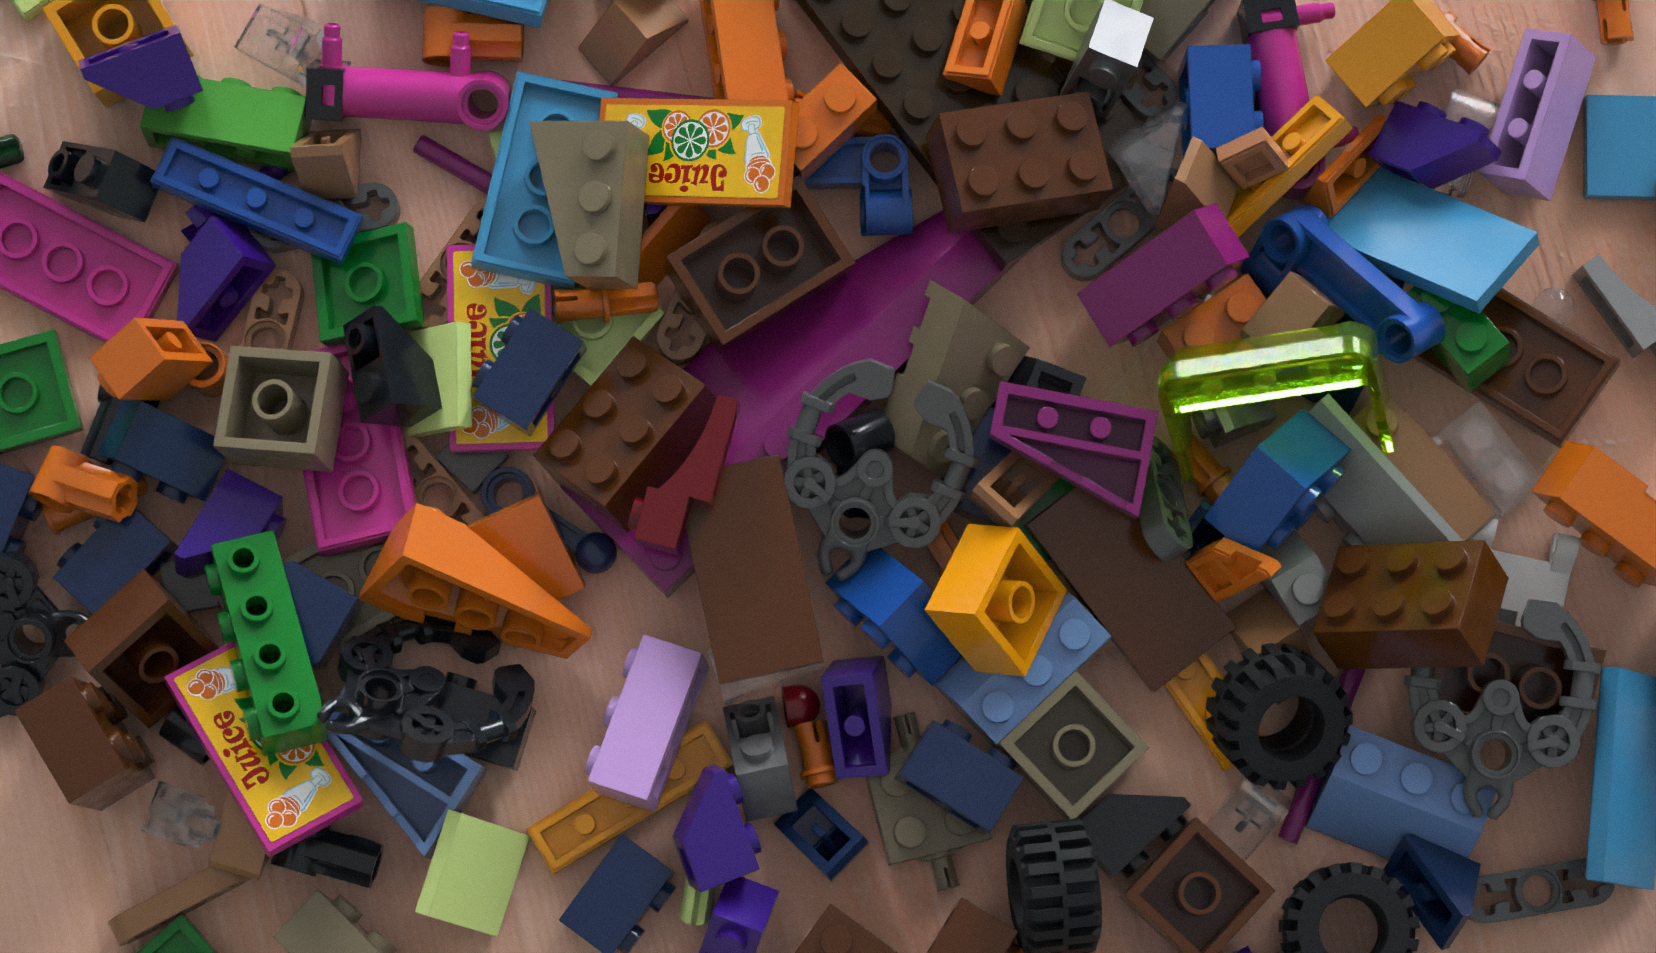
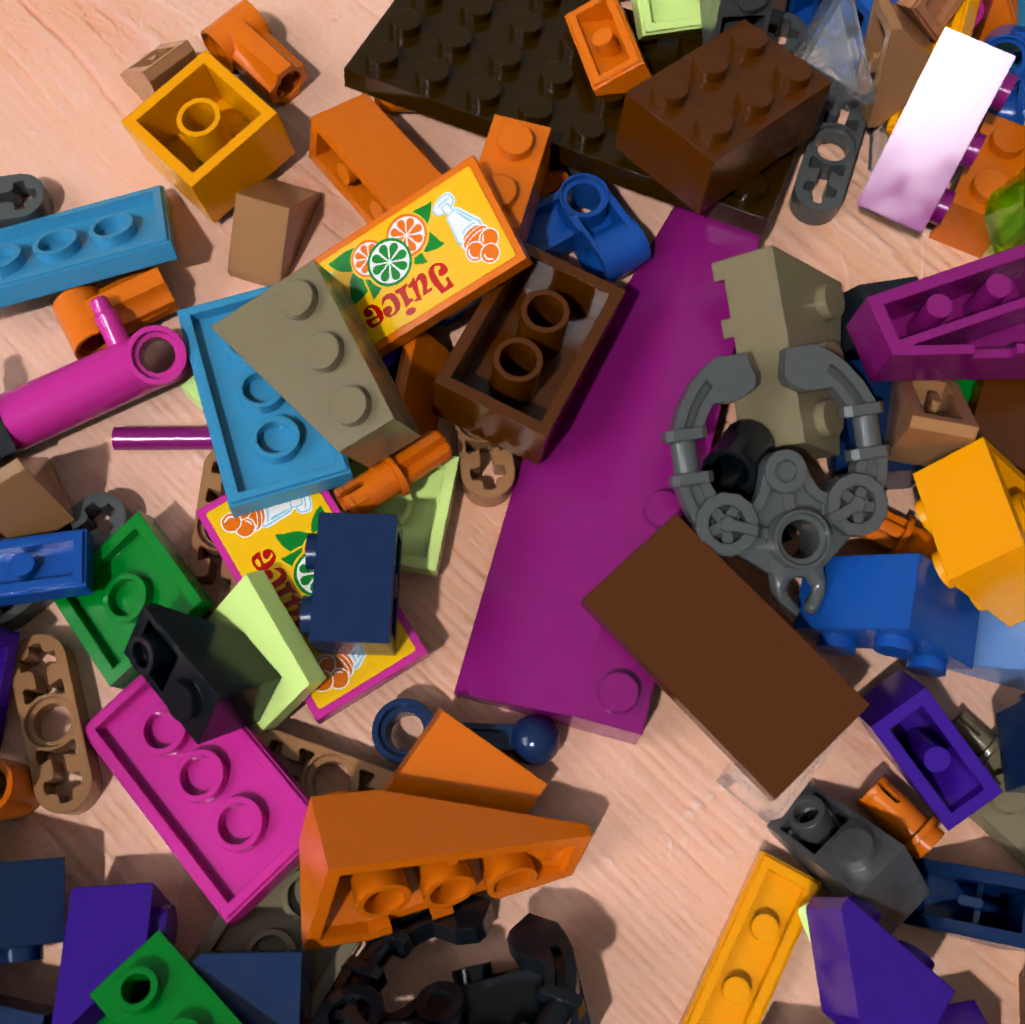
camera: 30 degrees left, 10 degrees down
(281, 408) = (96, 783): dark tan brick -> none
(471, 467) = (349, 728): dark grey tile -> none
(627, 431) = (500, 591): reddish brown brick -> none
(647, 722) = (707, 896): lavender brick -> none
(664, 511) = (601, 640): dark red slope -> none
(799, 704) = (847, 775): dark red hinge -> none

